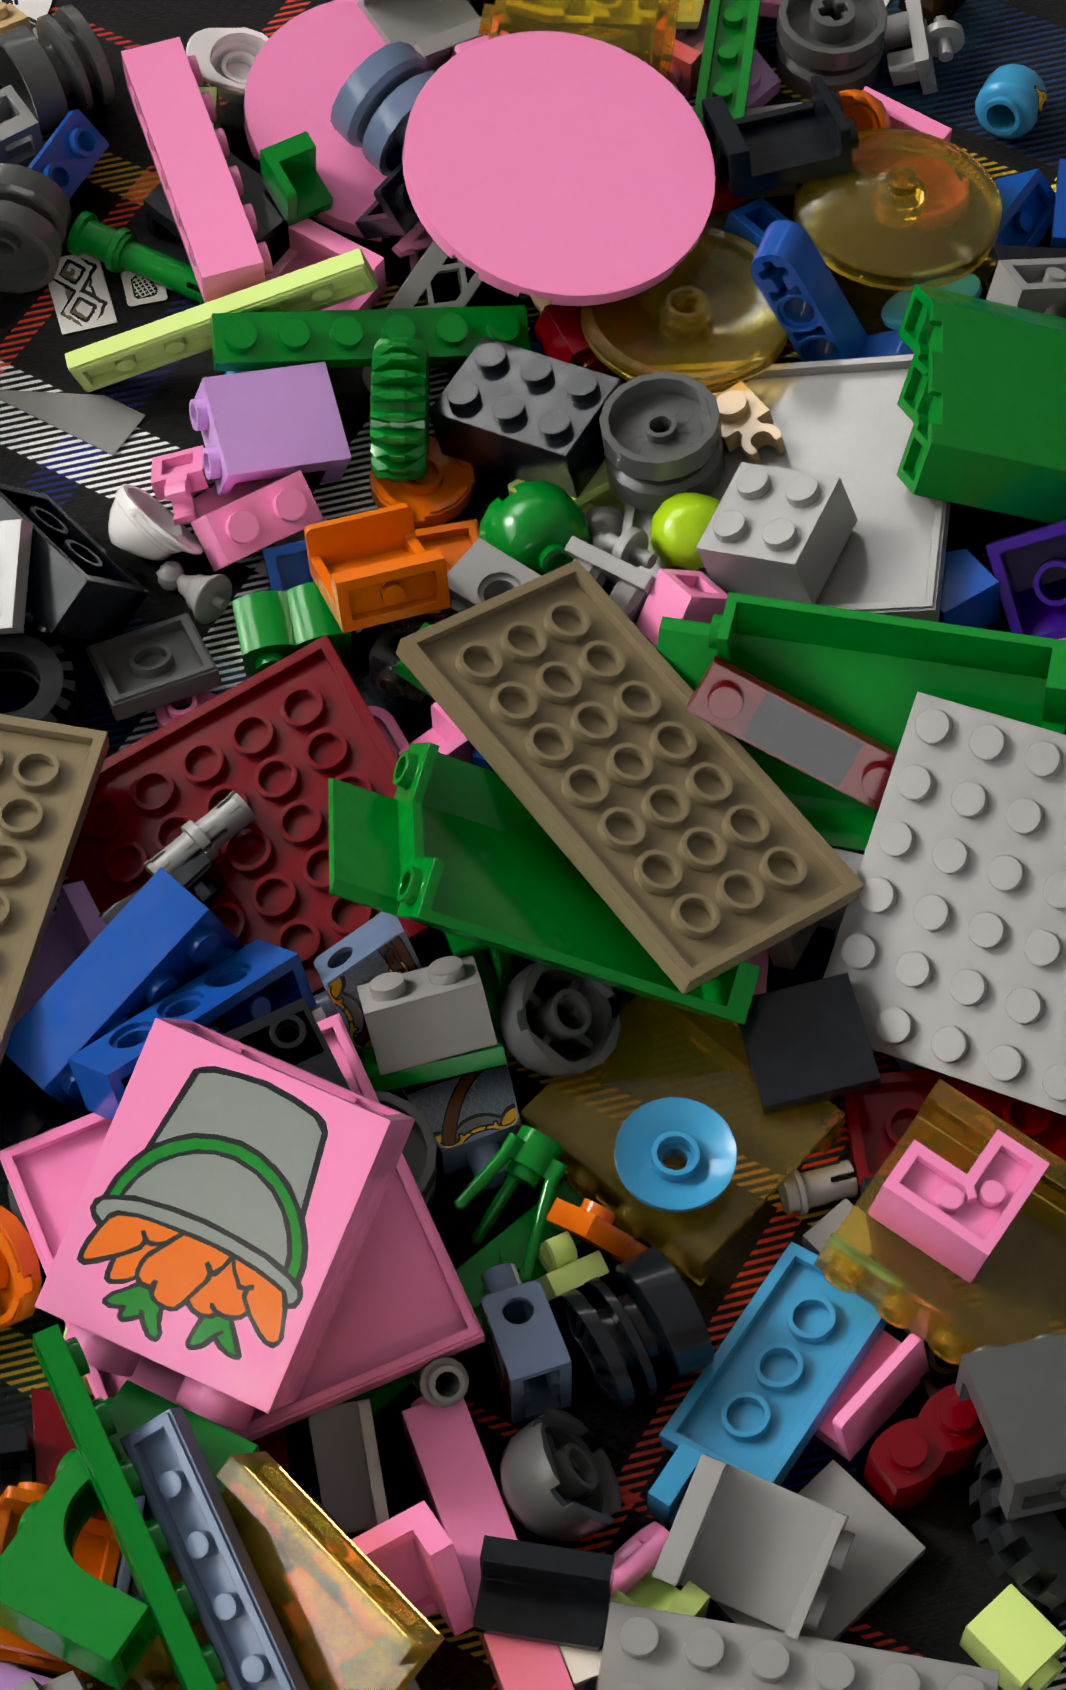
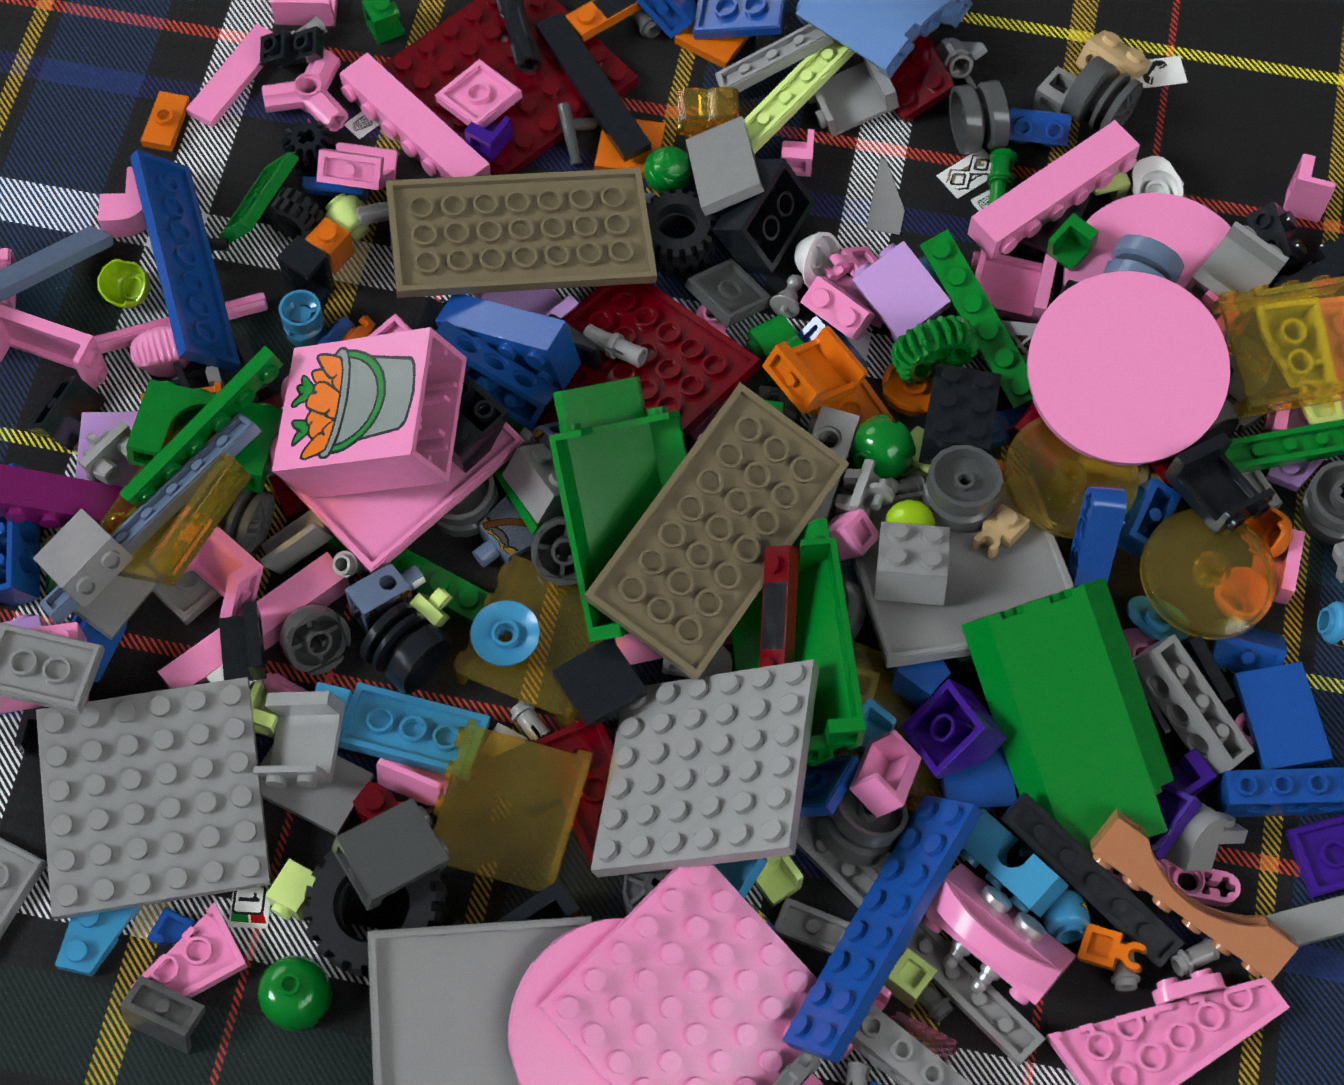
camera: 70 degrees right, 5 degrees up
(190, 331) = (977, 258): yellowish green tile -> none
(530, 1159) = (482, 566): green plant -> none
(595, 1227) = (455, 610): orange plate -> none
(955, 1213) = (516, 793): bright pink panel -> none

